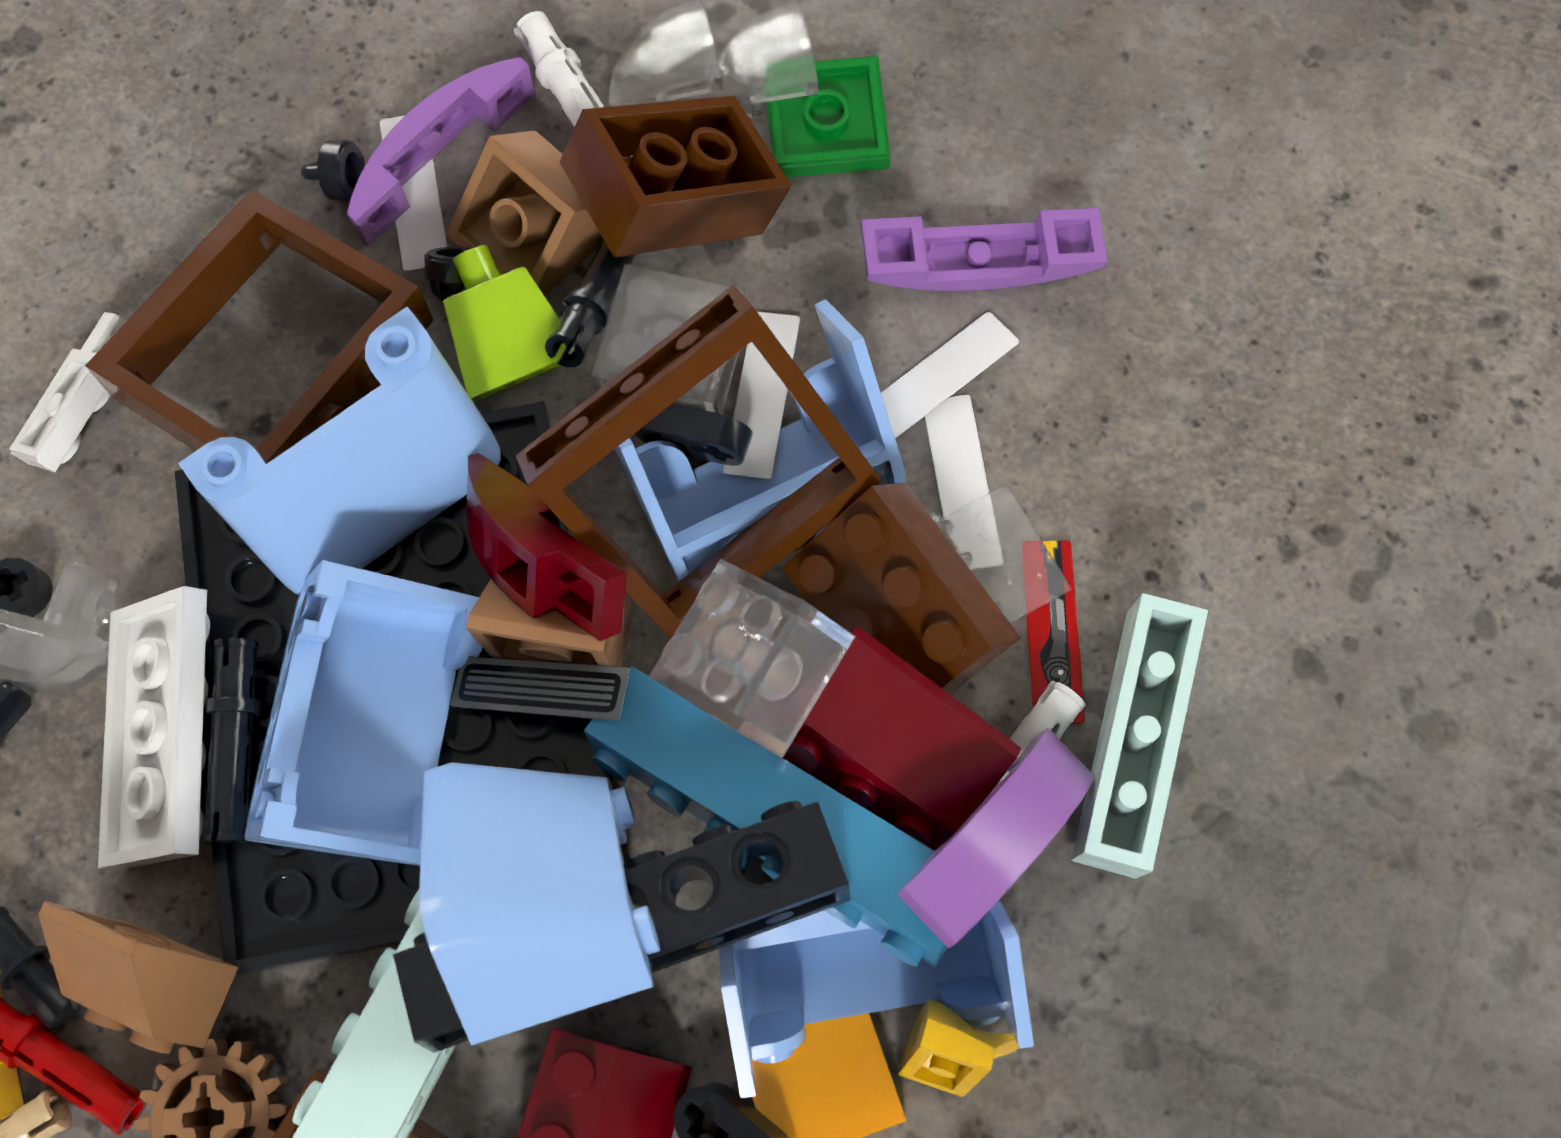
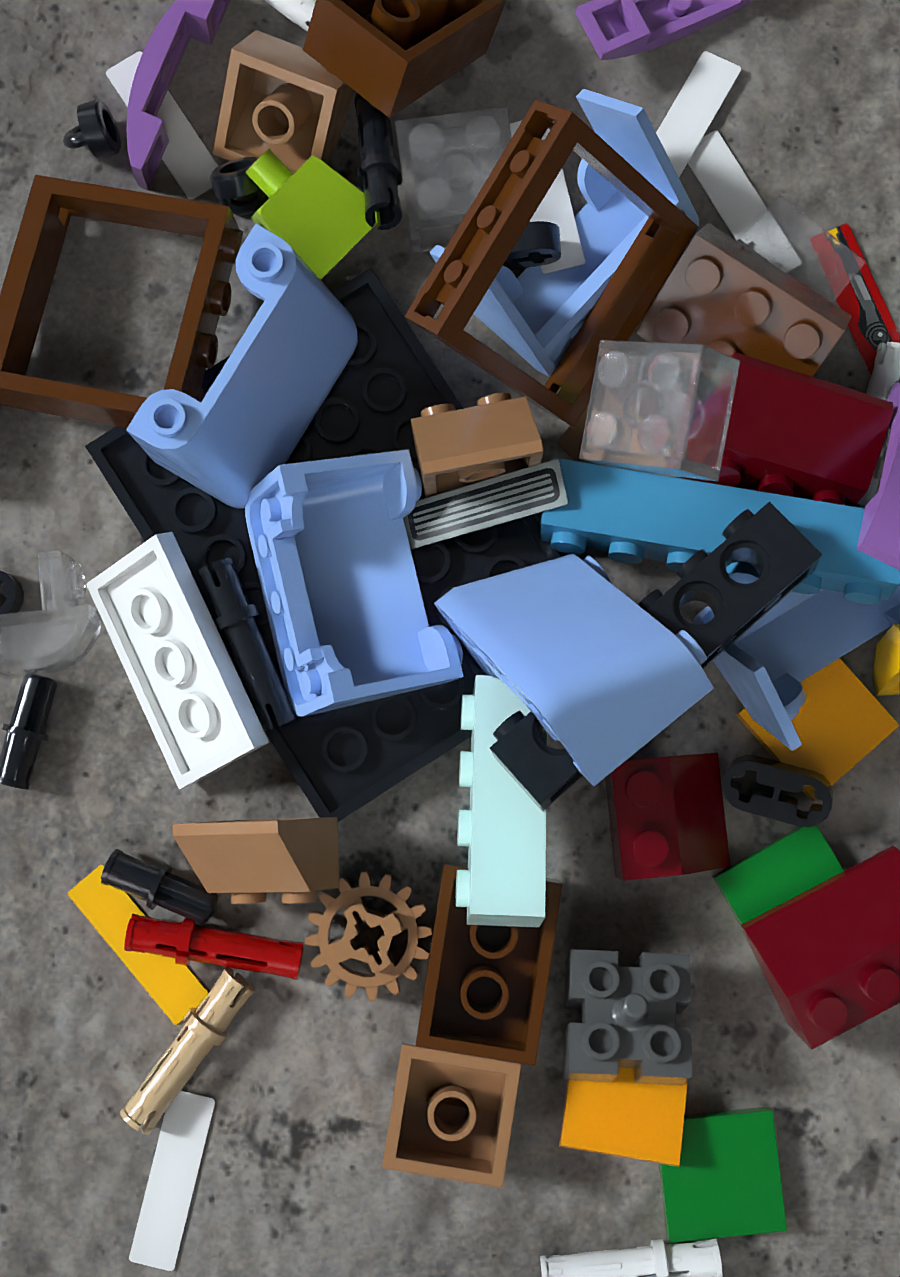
camera: 25 degrees left, 10 degrees up
(534, 558) = (442, 397): dark red slope -> none

